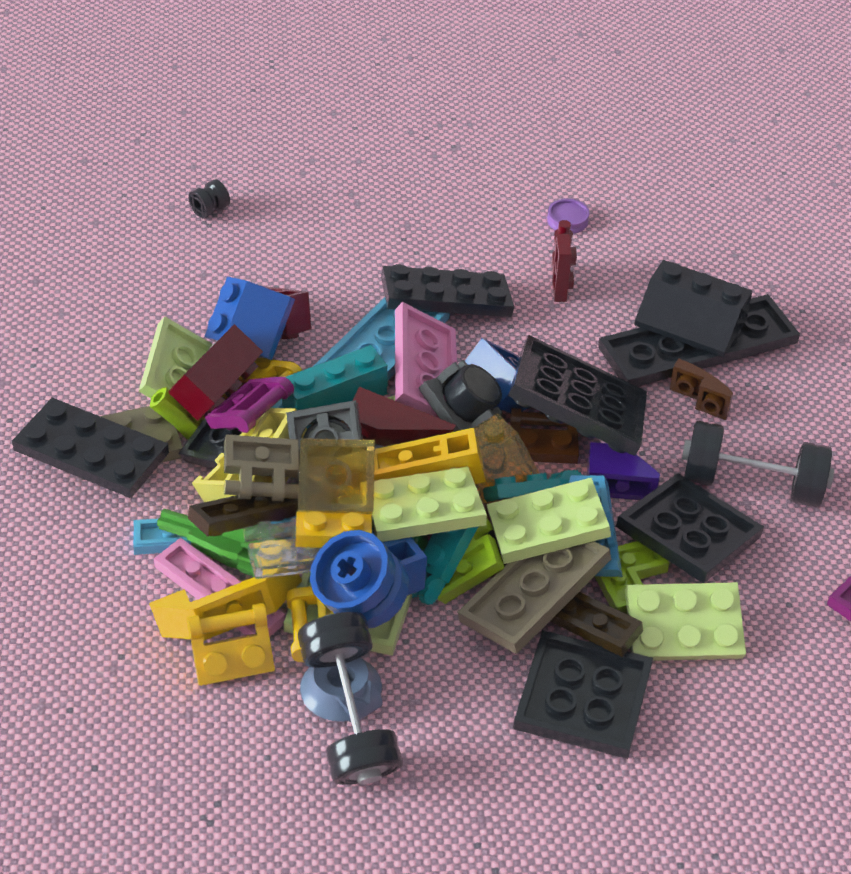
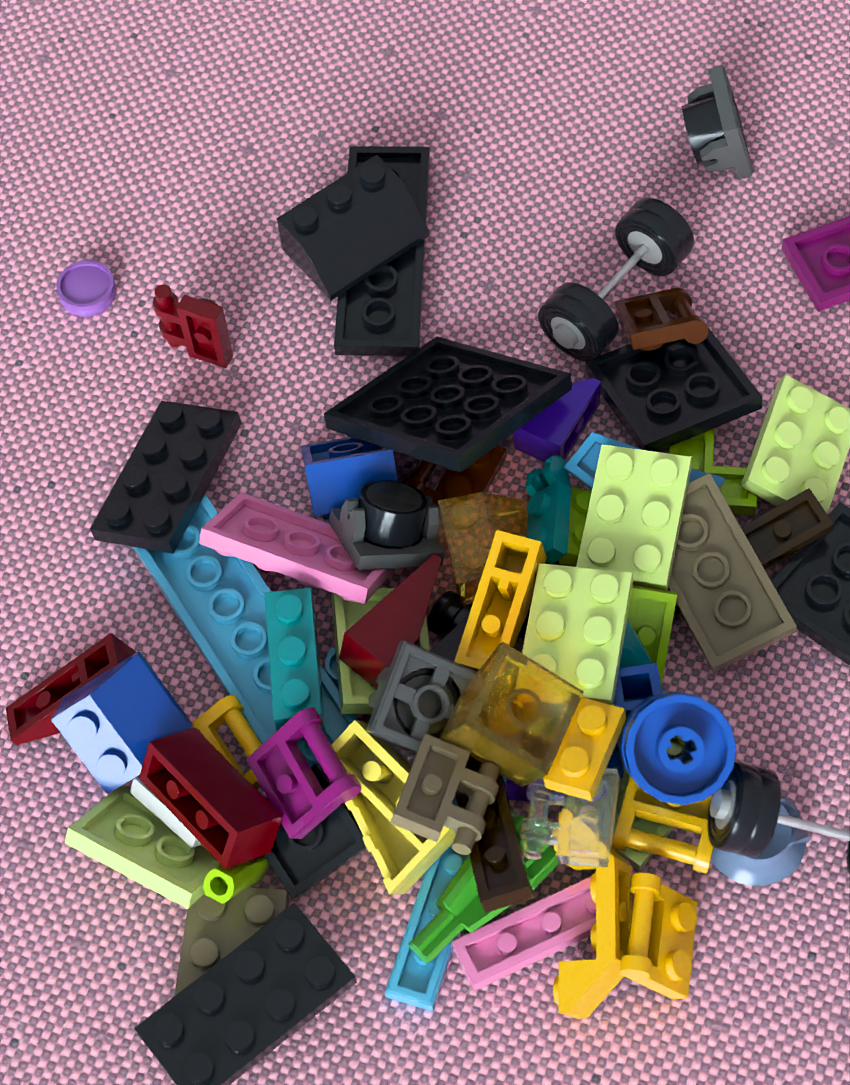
camera: 60 degrees left, 15 degrees up
(711, 394) = (474, 275): reddish brown slope -> none
(736, 497) = (648, 324): none -> reddish brown plate

